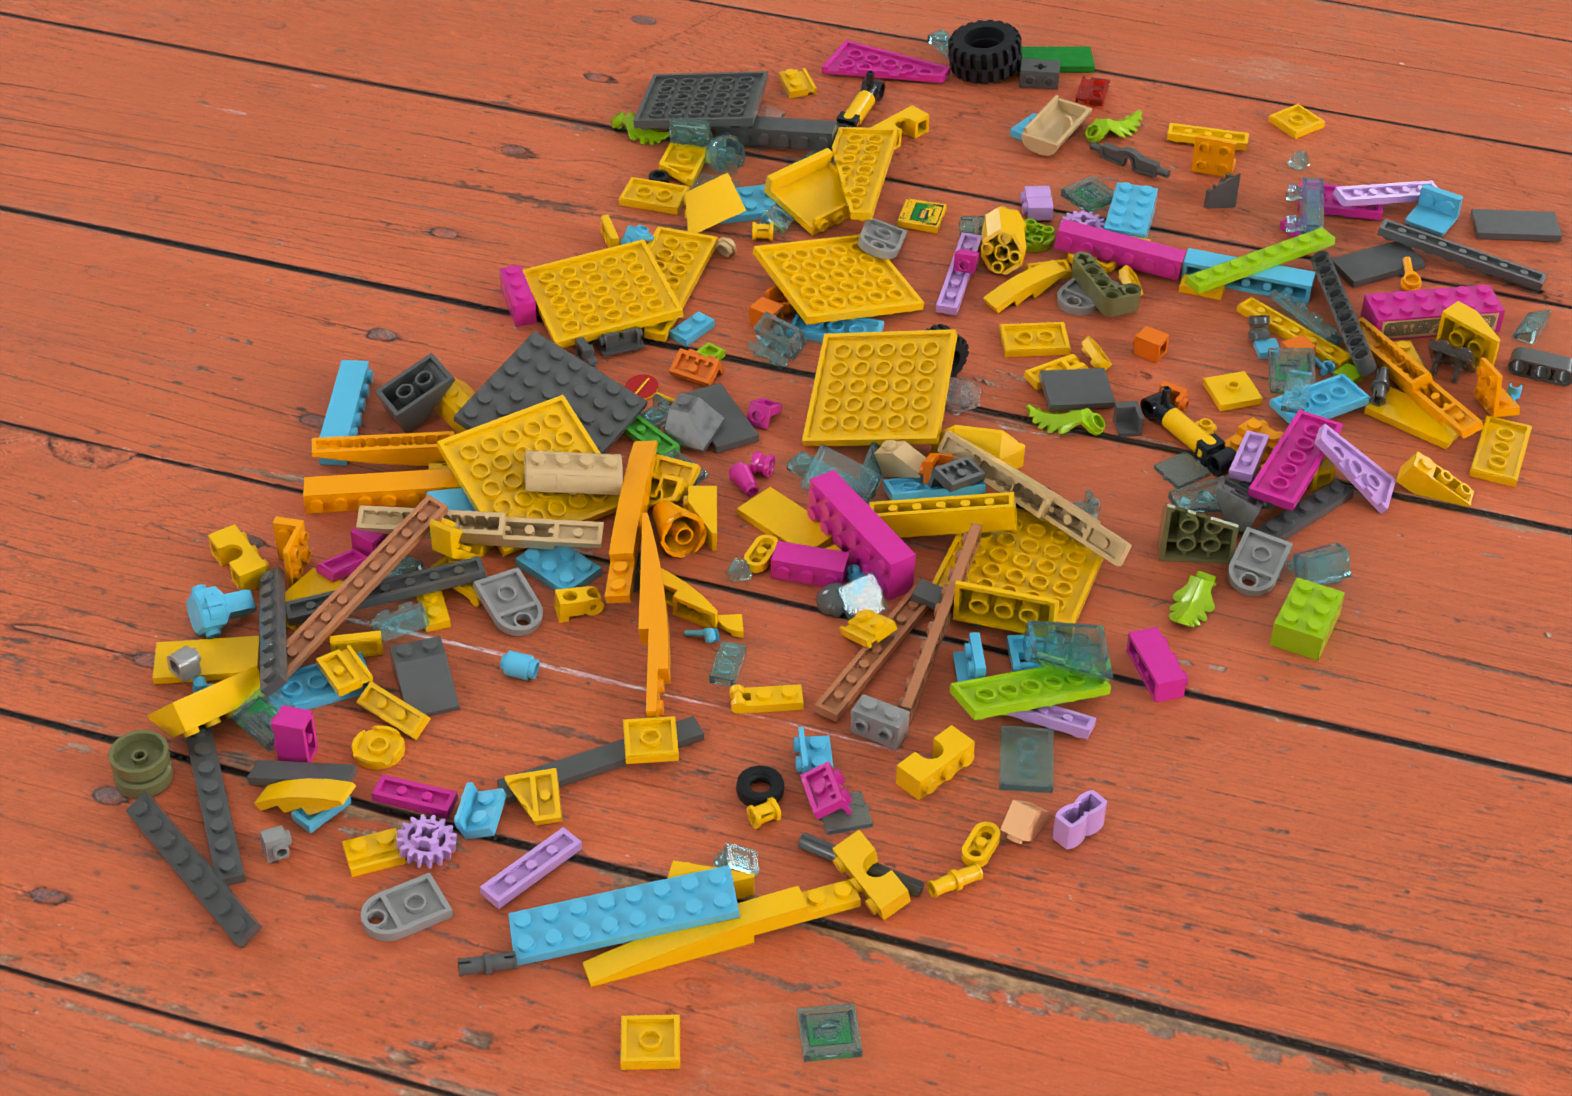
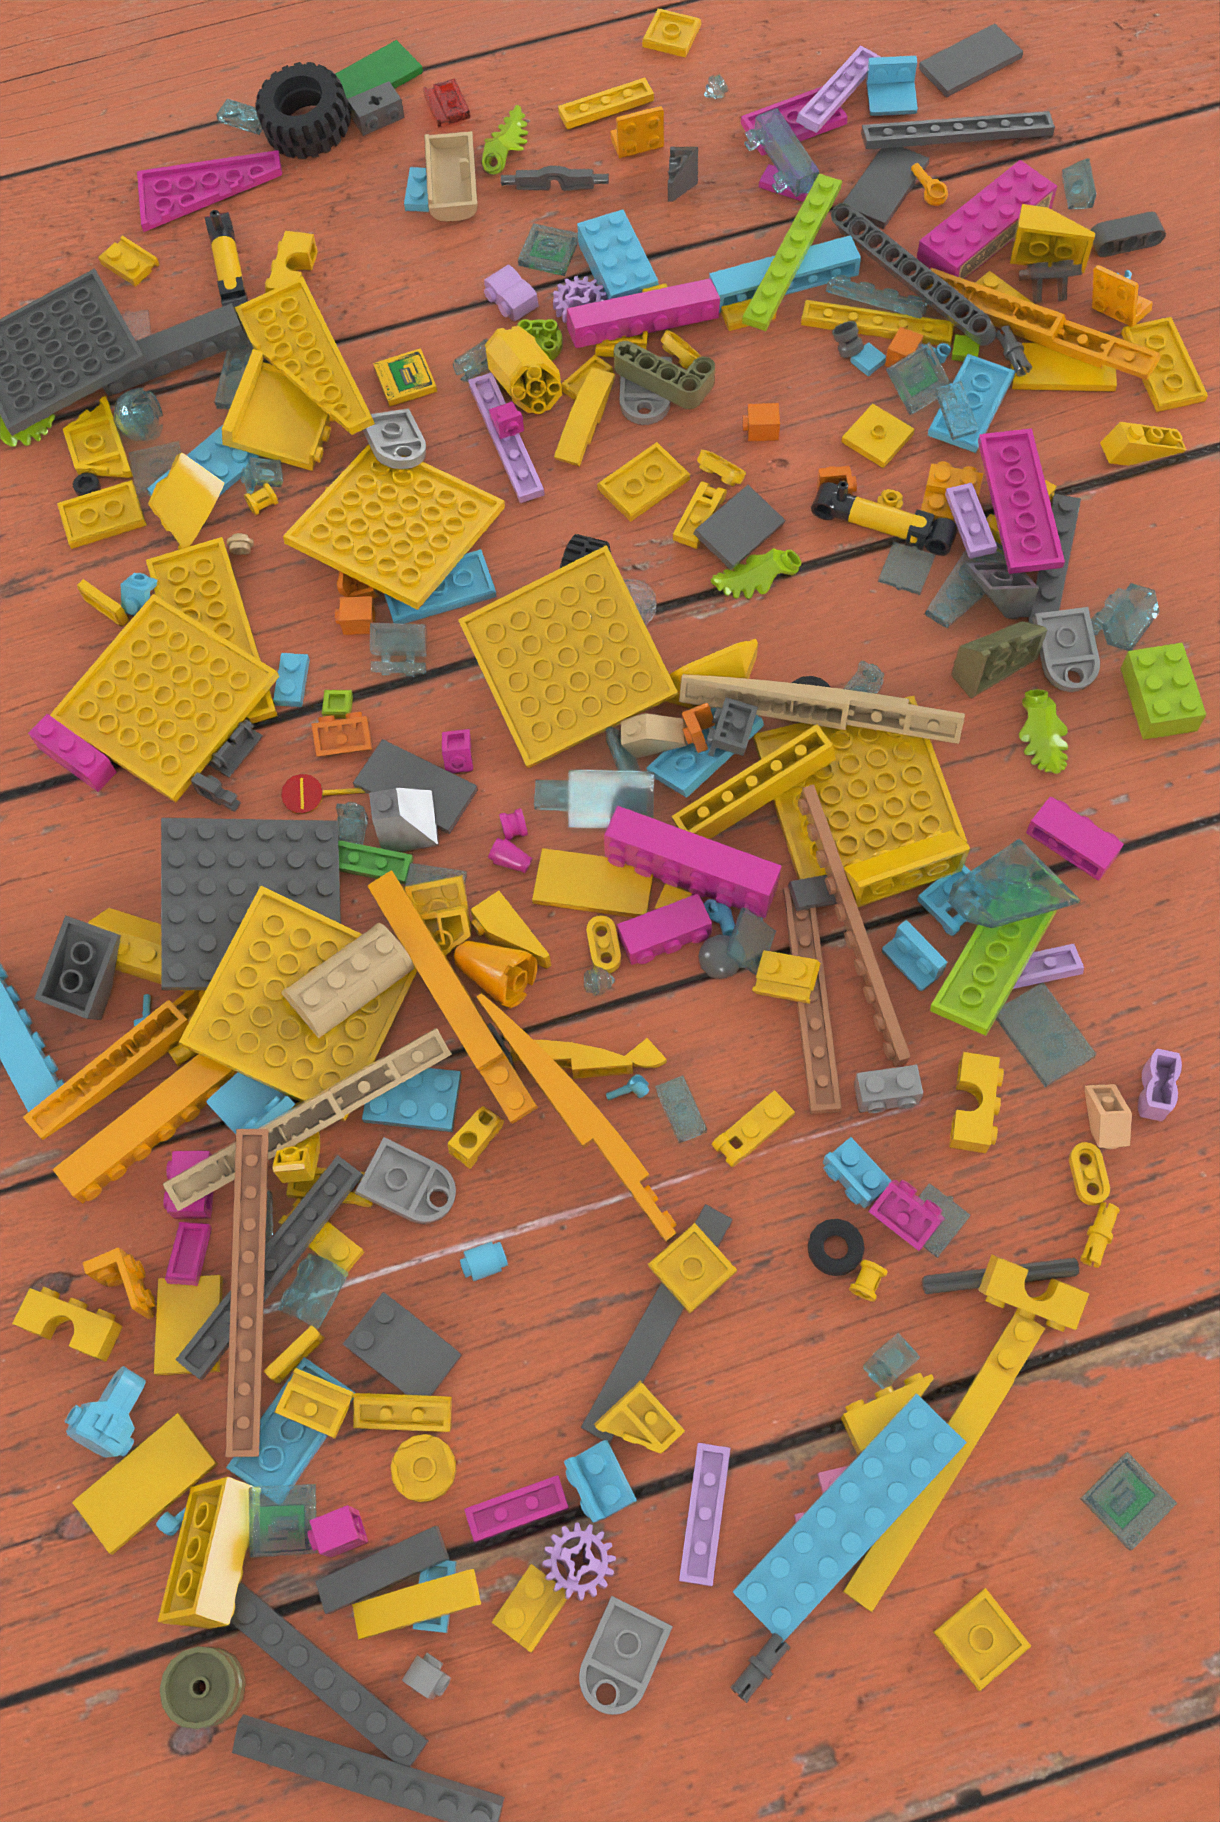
camera: 30 degrees left, 25 degrees up
(185, 663) = (138, 1519): light grey plate -> none
(272, 631) = (202, 1413): dark grey plate -> none
(690, 132) = (82, 408): clear light blue bracket -> none
(1128, 419) = (815, 536): dark grey panel -> none
(1360, 470) = (1079, 474): lavender wing -> none

